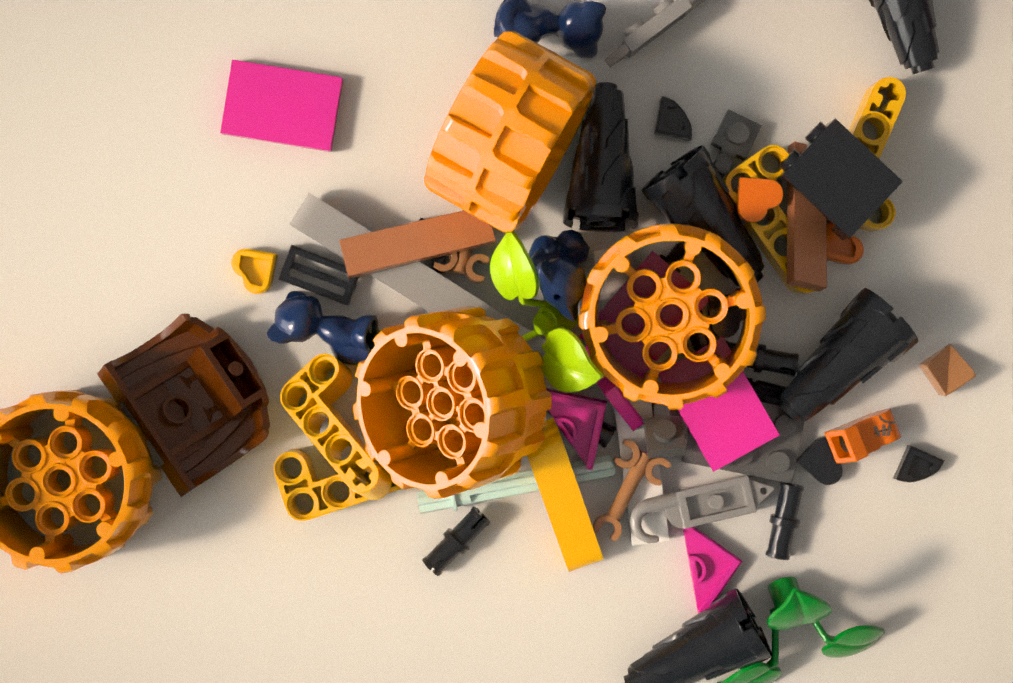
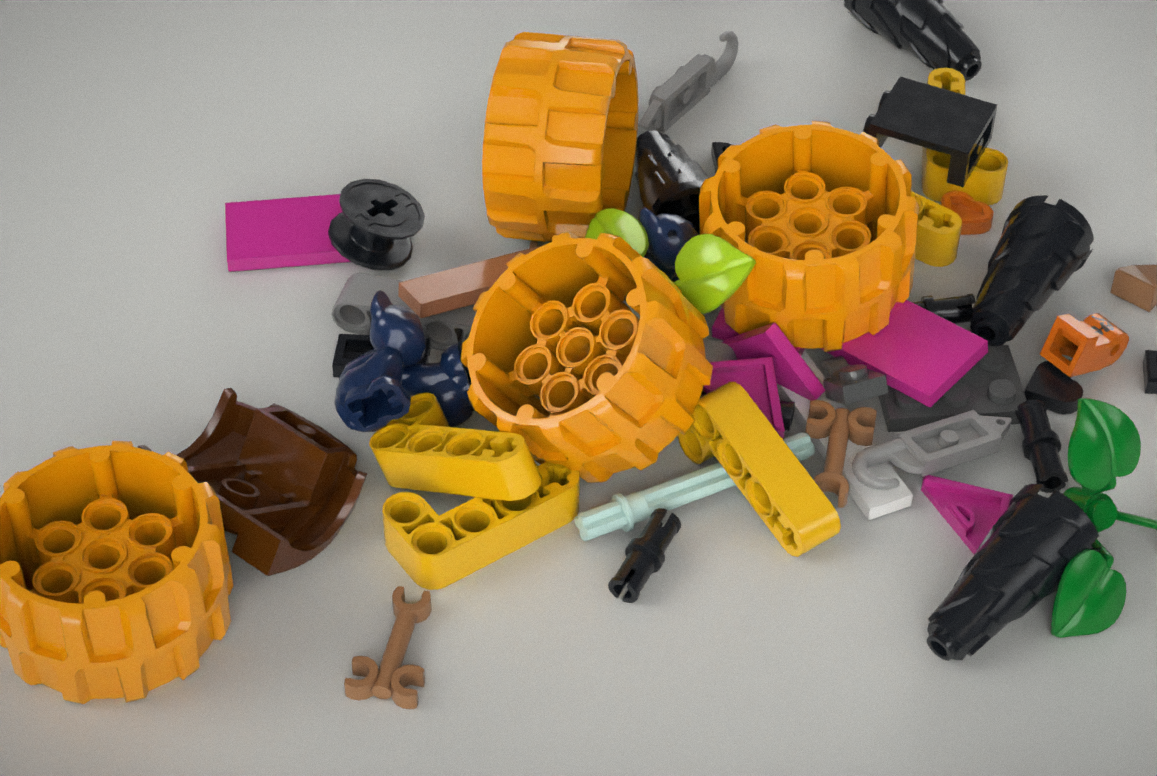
camera: 15 degrees left, 45 degrees down
(247, 592) = (390, 676): none -> medium nougat bar
(255, 268) = (300, 367): yellow tile -> none
(289, 357) = (373, 391): none -> dark blue animal
(347, 159) = (376, 224): none -> black piece
(805, 239) = (926, 186): nougat tile -> none

